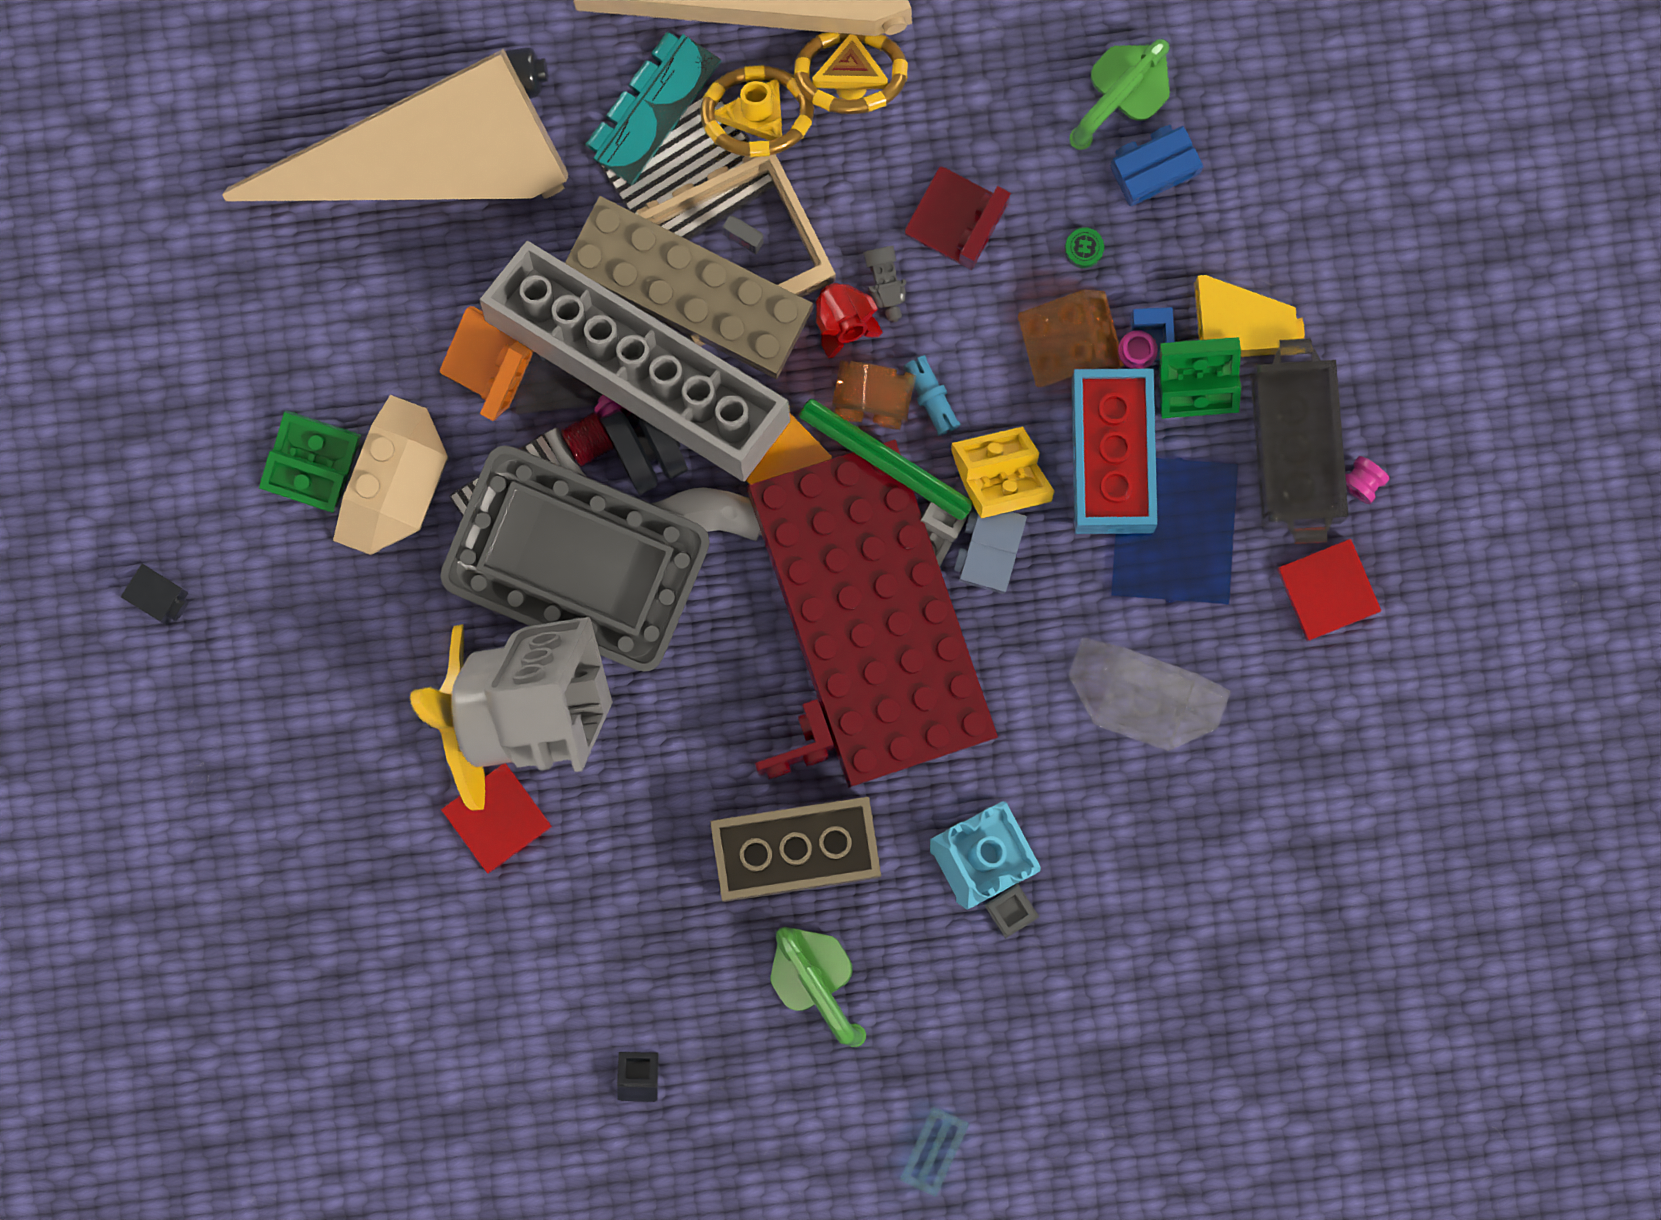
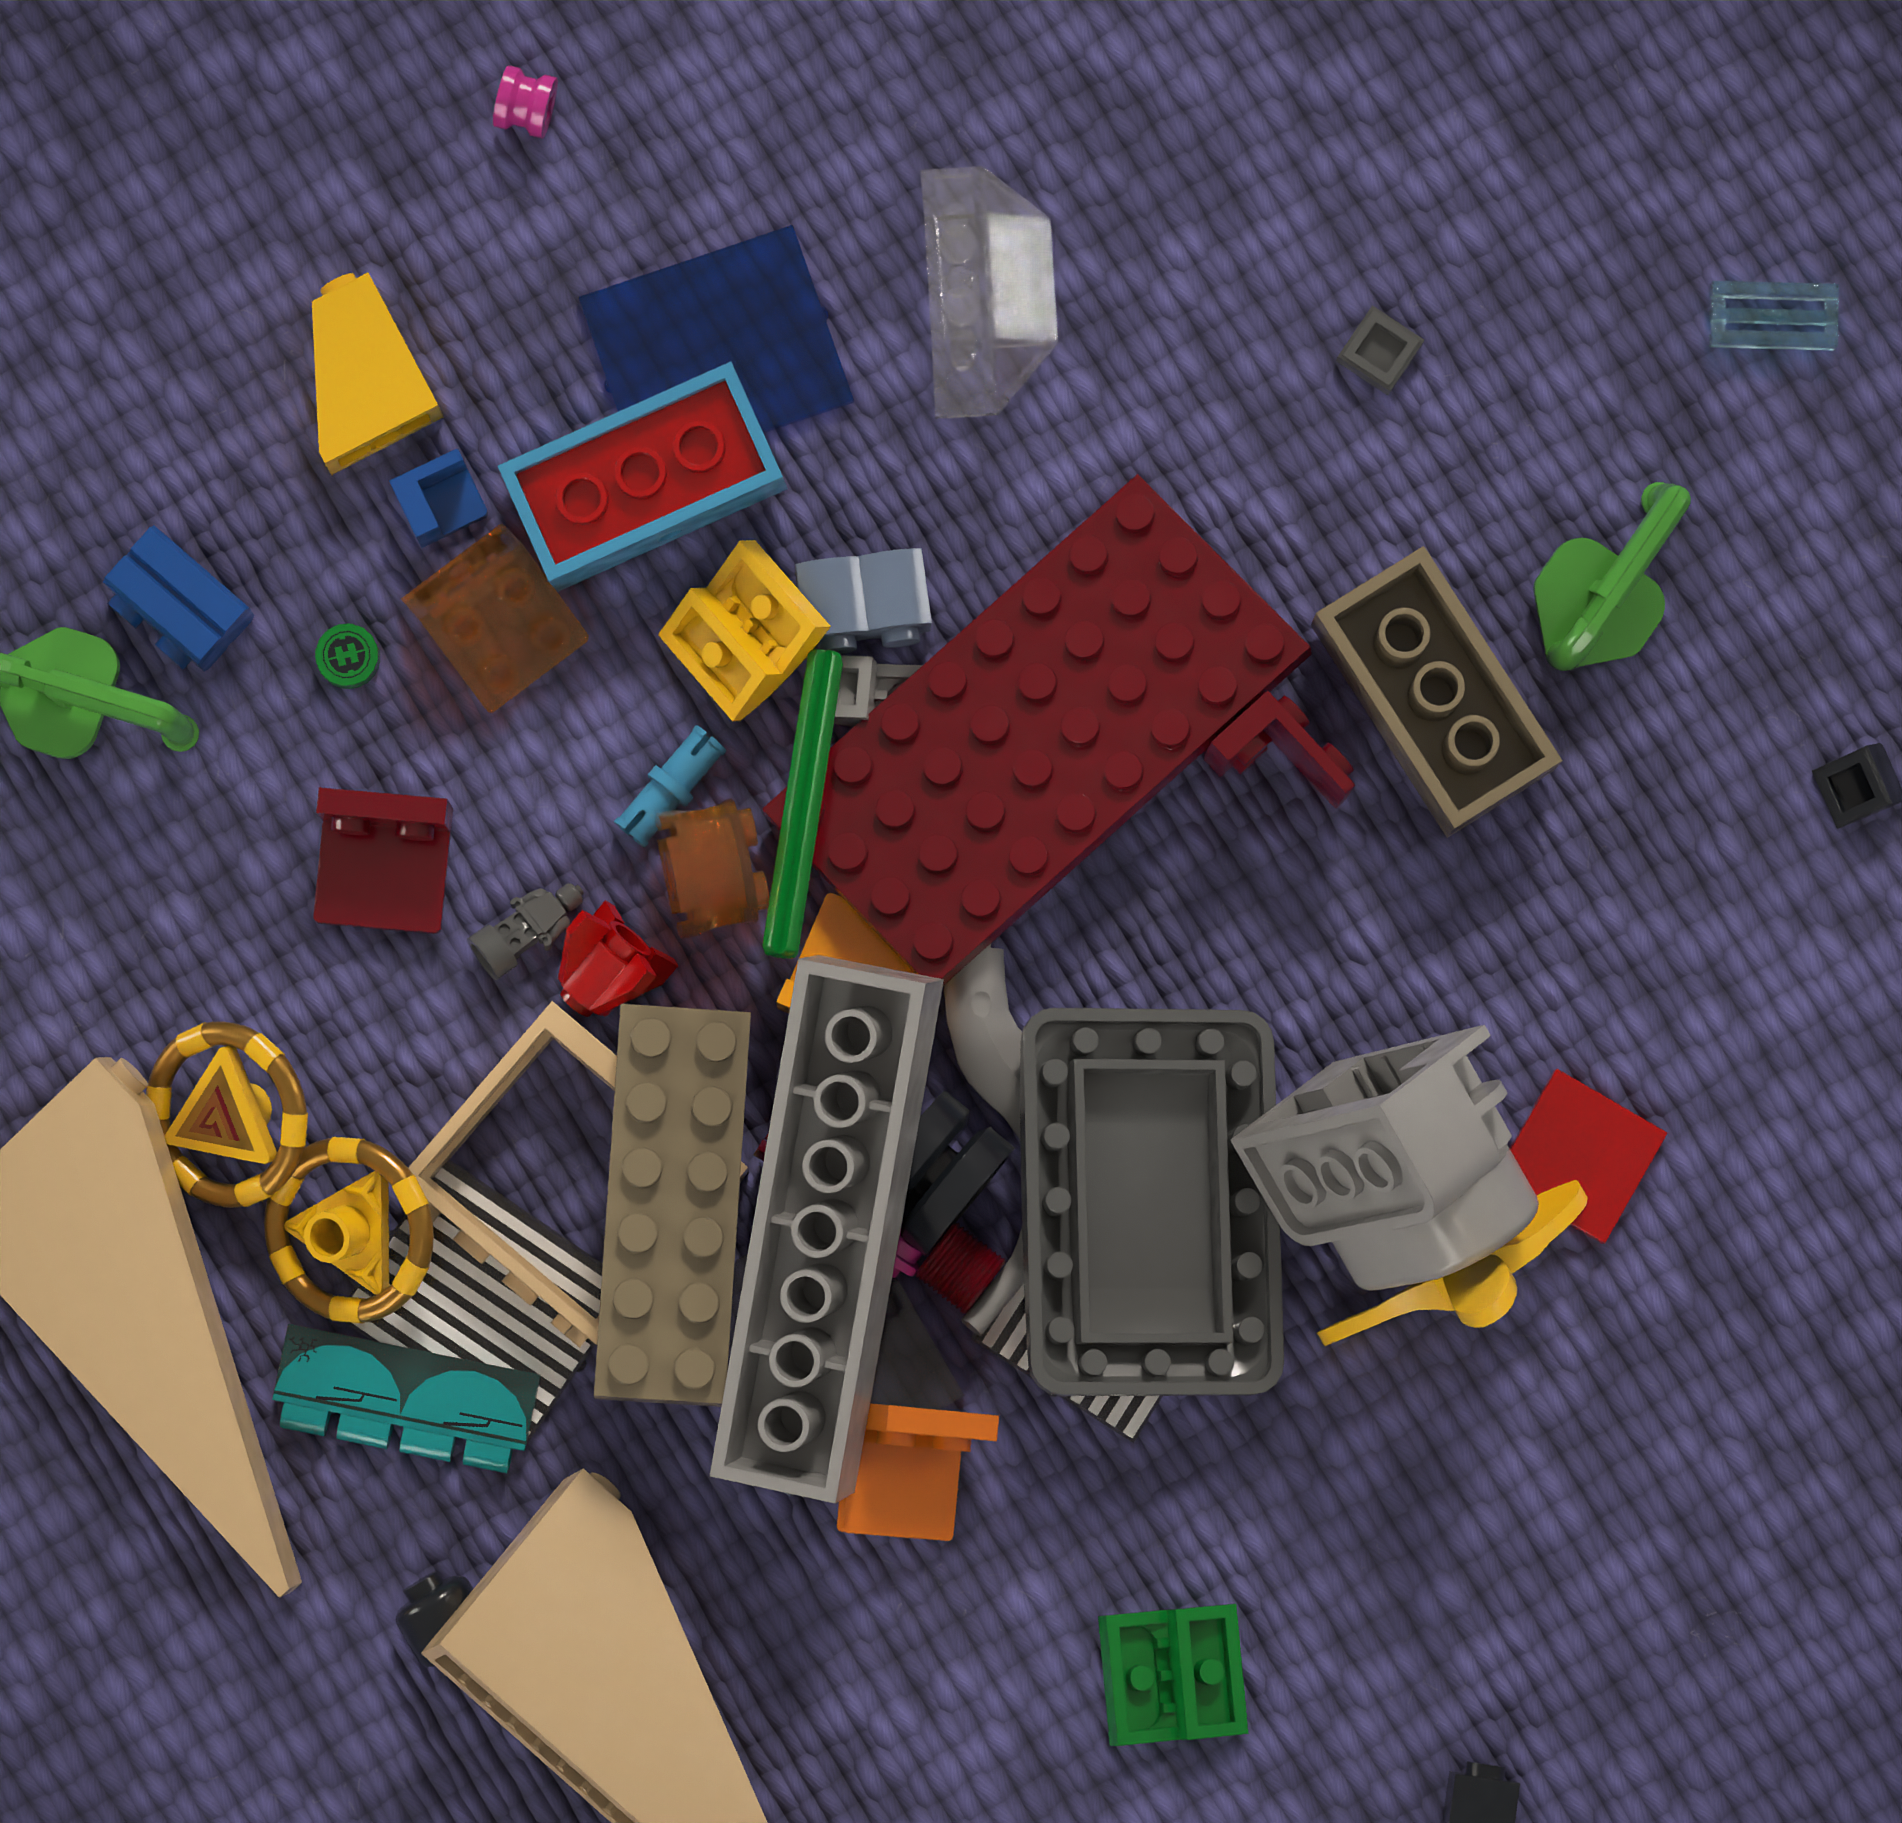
camera: 115 degrees left, 0 degrees up
(392, 479) = (1144, 1534): tan wedge -> none
(743, 234) = (554, 1160): dark grey tile -> none
(984, 855) = (1319, 421): medium azure slope -> none
(1137, 350) = (472, 510): dark pink plate -> none
(1200, 377) = (476, 399): green slope -> none
(1299, 443) = (516, 212): clear smoke container -> none
(1329, 590) = (709, 89): red tile -> none

